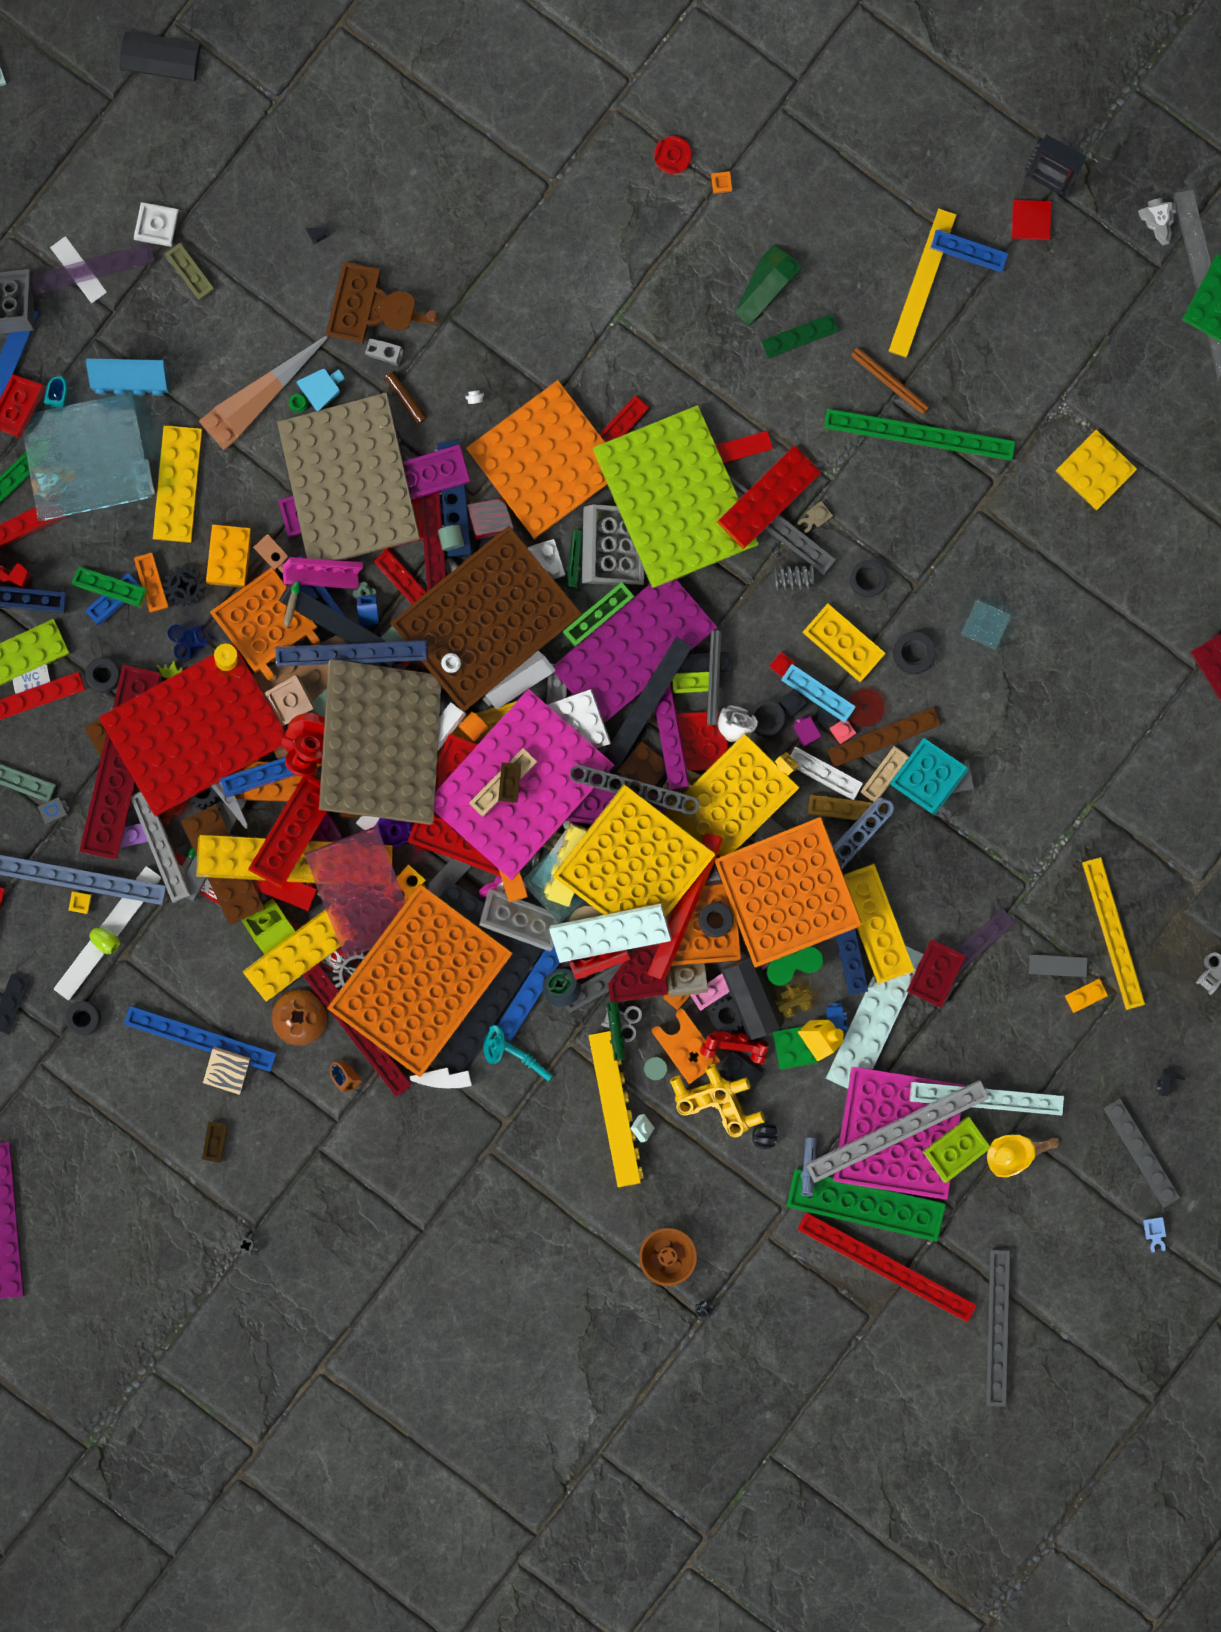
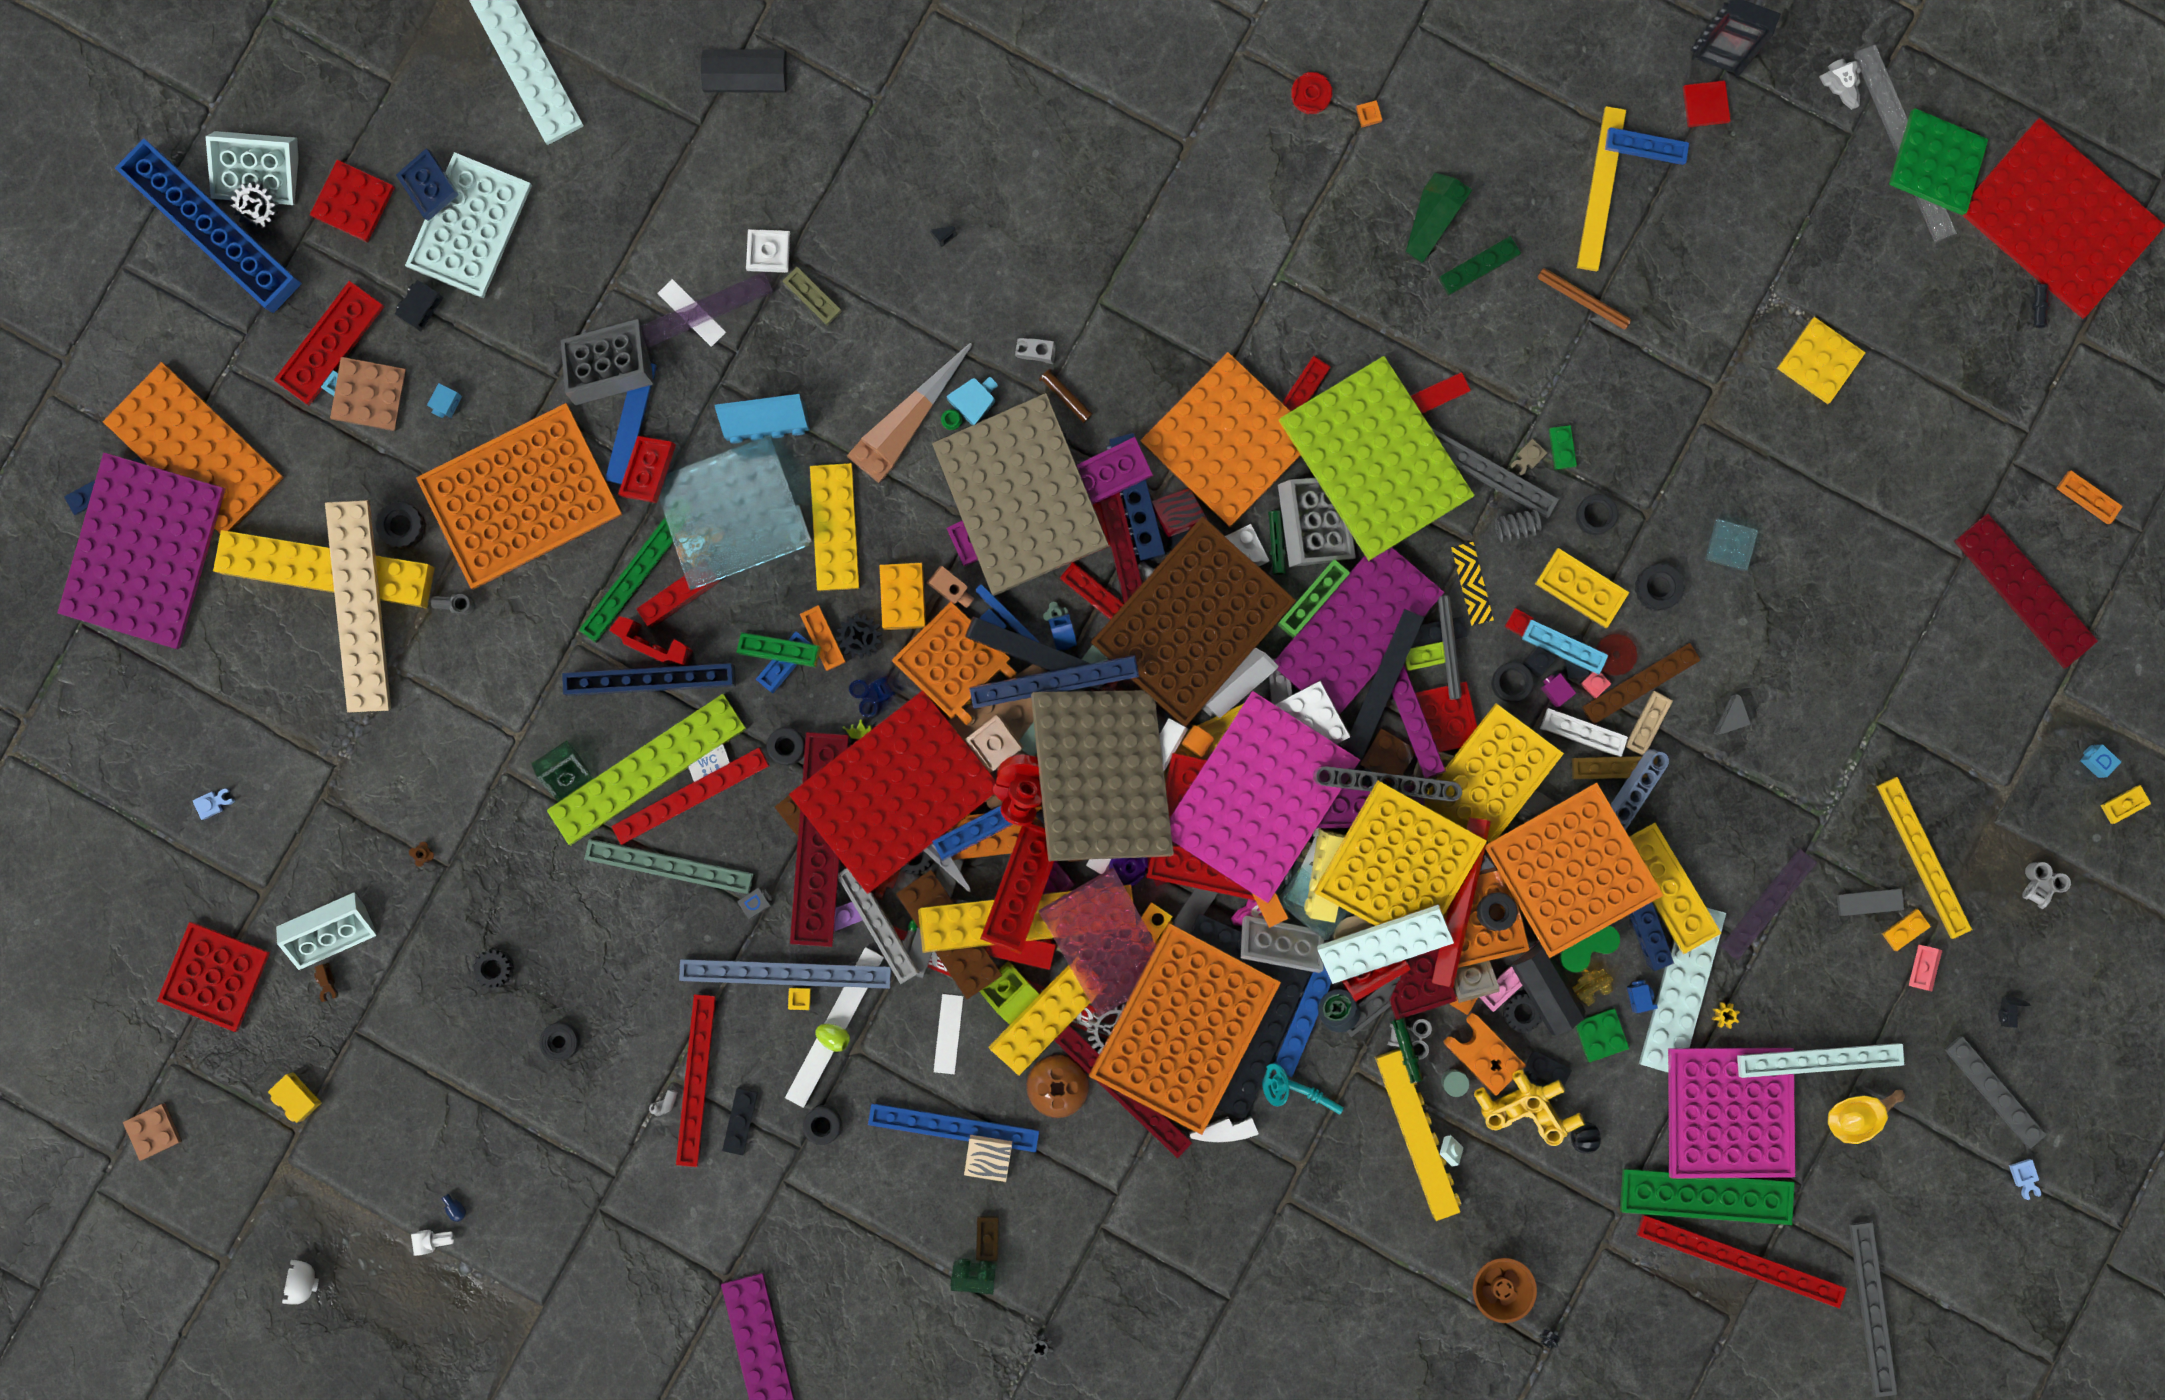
camera: 10 degrees left, 0 degrees up
(56, 392) = (688, 448): rock -> none
(204, 1179) = (963, 1282): none -> clear green brick
(208, 955) = (948, 1034): none -> white sticker
(226, 657) = (917, 707): yellow piece -> none
(295, 589) = (980, 641): dark tan piece -> none
(321, 572) = (1006, 599): dark pink fence -> none
(344, 1076) = (1117, 1144): dark orange rock -> none
(359, 299) = (998, 302): reddish brown plate -> none
(451, 537) = (1142, 539): sand green piece -> none
(451, 663) = (1164, 675): white plate -> none
(475, 397) = (1141, 384): white plate -> none
(488, 796) = (1242, 798): tan plate -> none
(509, 782) = (1251, 797): dark brown plate -> none
(735, 723) = (1483, 694): white cylinder -> none
(735, 1042) = (1538, 1041): red plate -> none
(746, 623) = (1472, 583): none -> sticker
(768, 497) = (1477, 443): red plate -> none
(786, 764) = (1546, 729): yellow plate -> none
(809, 1155) = (1640, 1166): sand blue pin -> none
(821, 1037) = (1632, 1022): yellow torso -> none
(848, 513) = (1562, 447): none -> green plate
(897, 1131) = (1733, 1113): light grey plate -> none
(914, 1045) = (1719, 1015): none -> yellow gear
(919, 434) = (1626, 351): green plate -> none
(929, 776) = (1700, 719): teal plate -> none
(935, 973) = (1742, 932): dark red plate -> none
(956, 1149) = (1798, 1121): lime plate -> none
(1096, 1031) = (1925, 967): none -> coral plate

